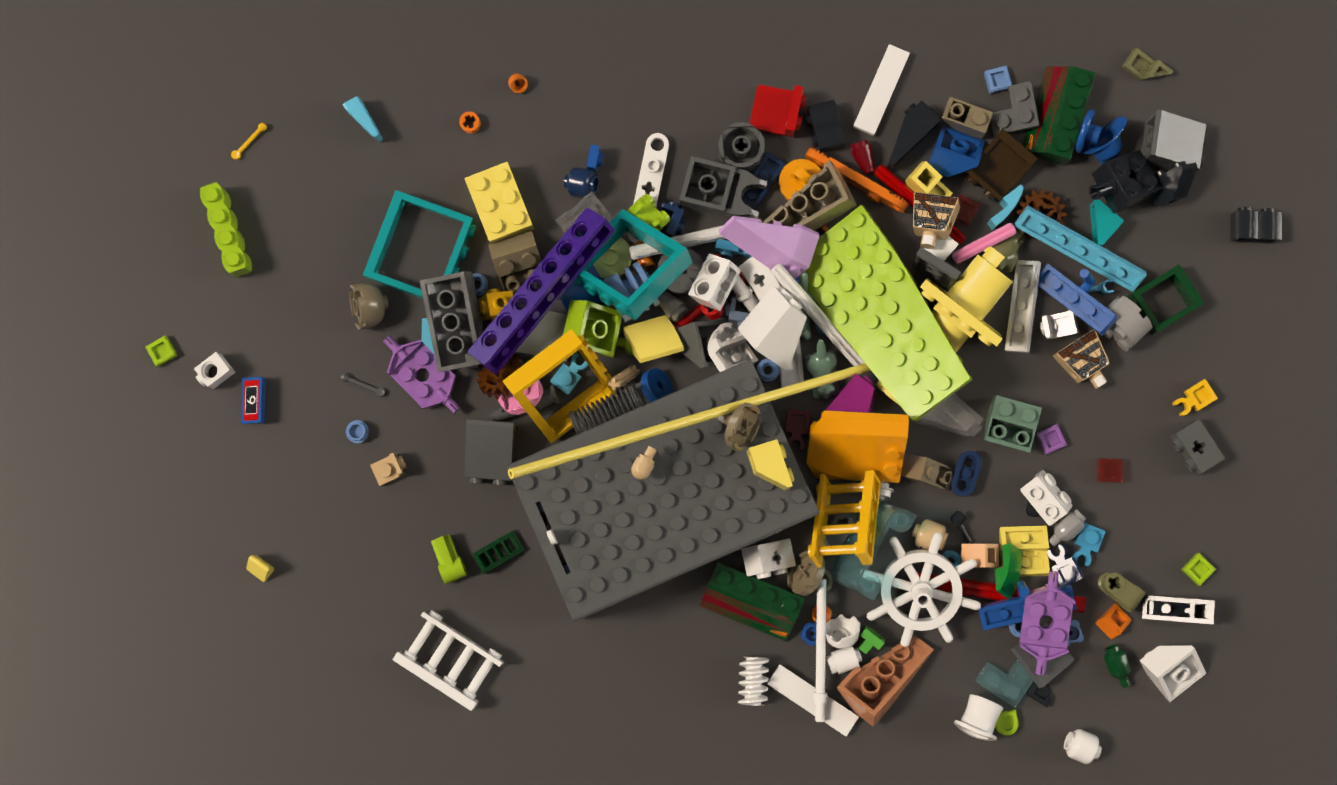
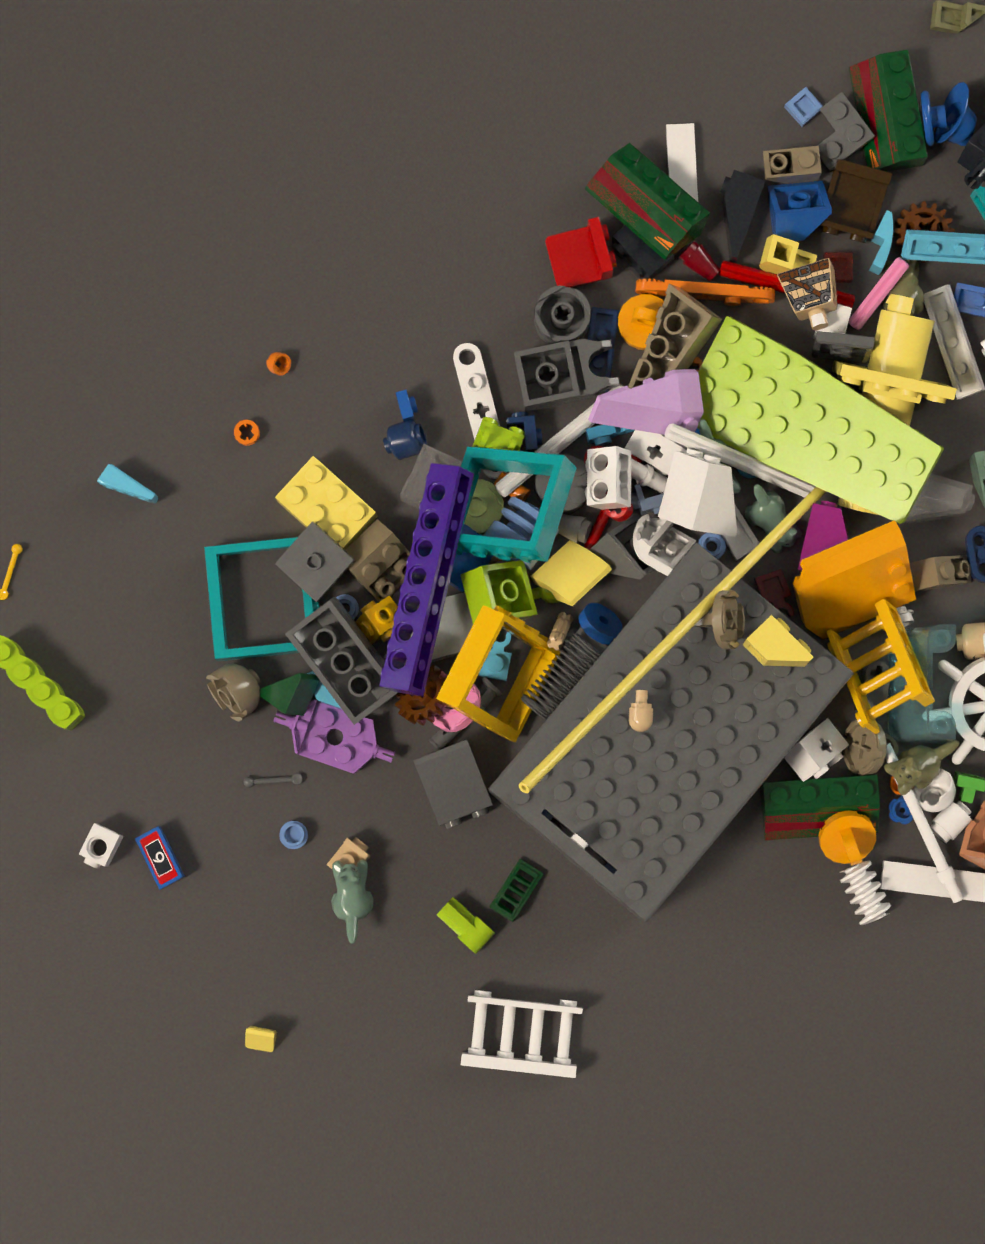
camera: 30 degrees left, 0 degrees up
(161, 351) = (29, 853): lime tile -> none
(374, 499) = (351, 899): none -> sand green animal
(404, 327) = (291, 694): none -> dark green slope
(469, 239) = (315, 561): none -> dark grey plate
(760, 633) = (847, 837): none -> light orange tile
(838, 607) = (918, 766): none -> olive animal
(845, 93) = (648, 201): none -> dark green slope

